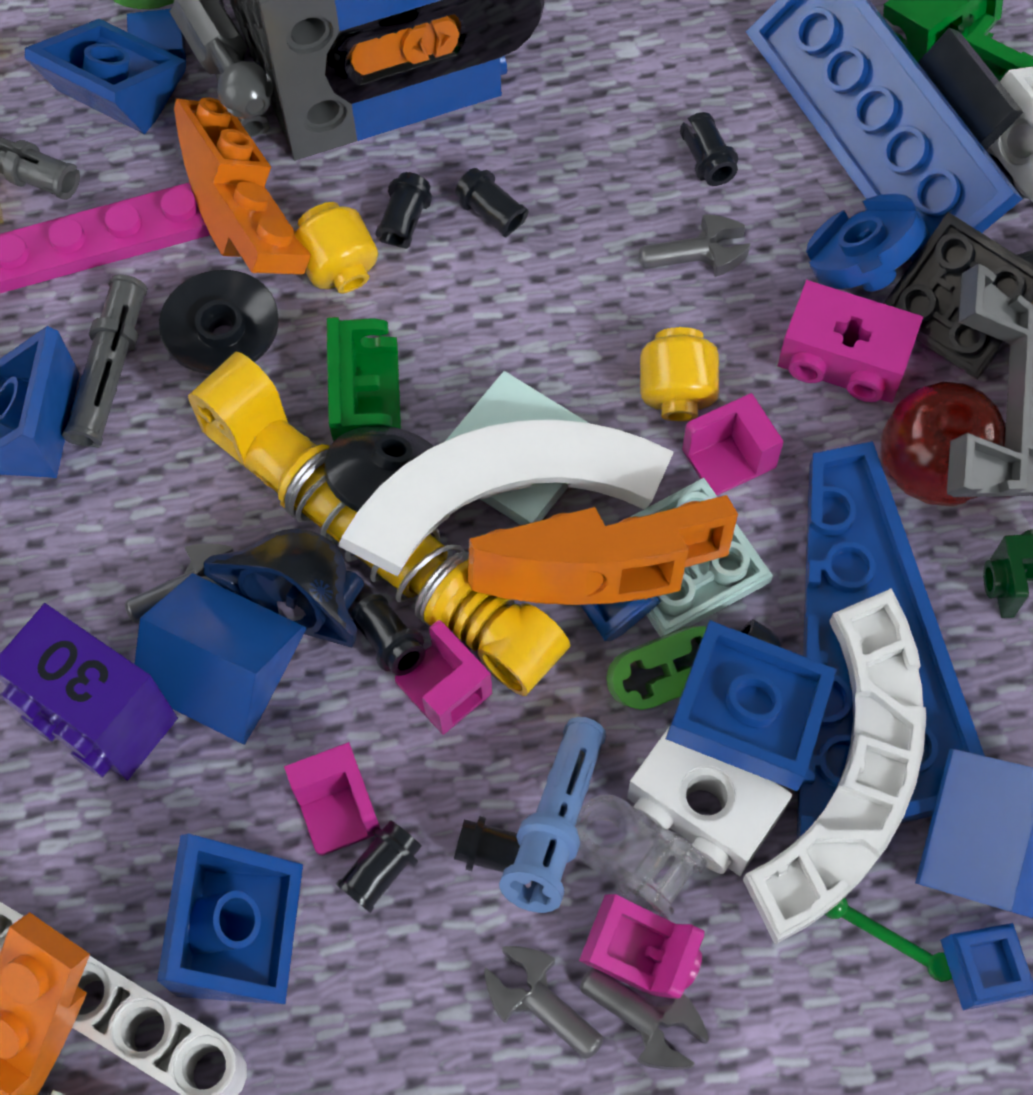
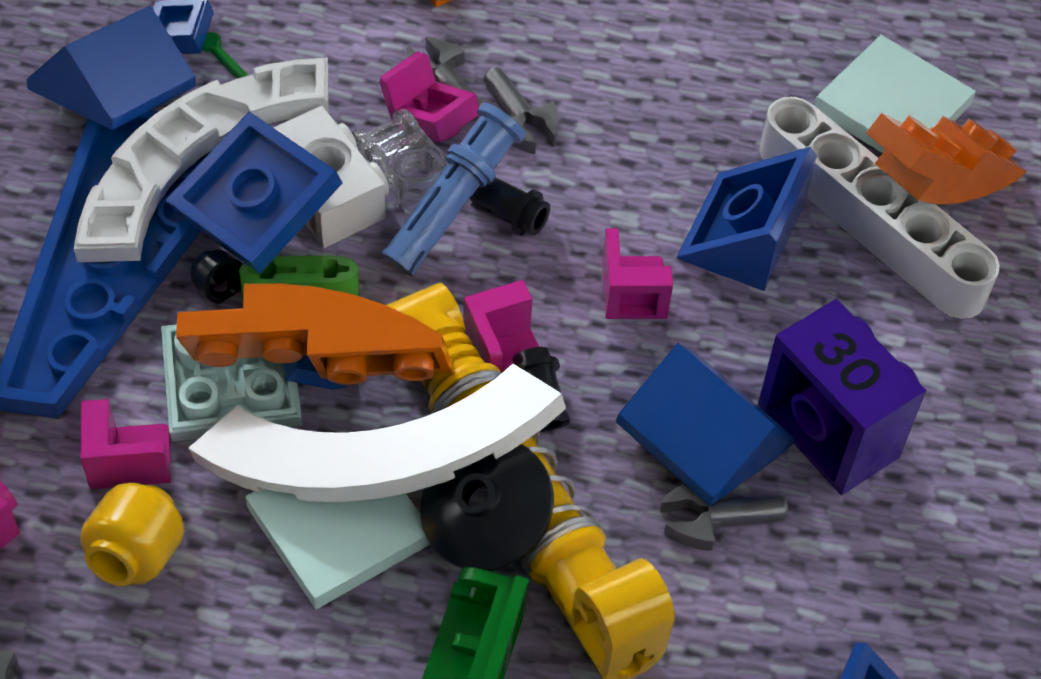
camera: 165 degrees left, 10 degrees down
(297, 570) = (613, 457): dark blue hat -> none
(380, 865) = (626, 215): black pin -> none

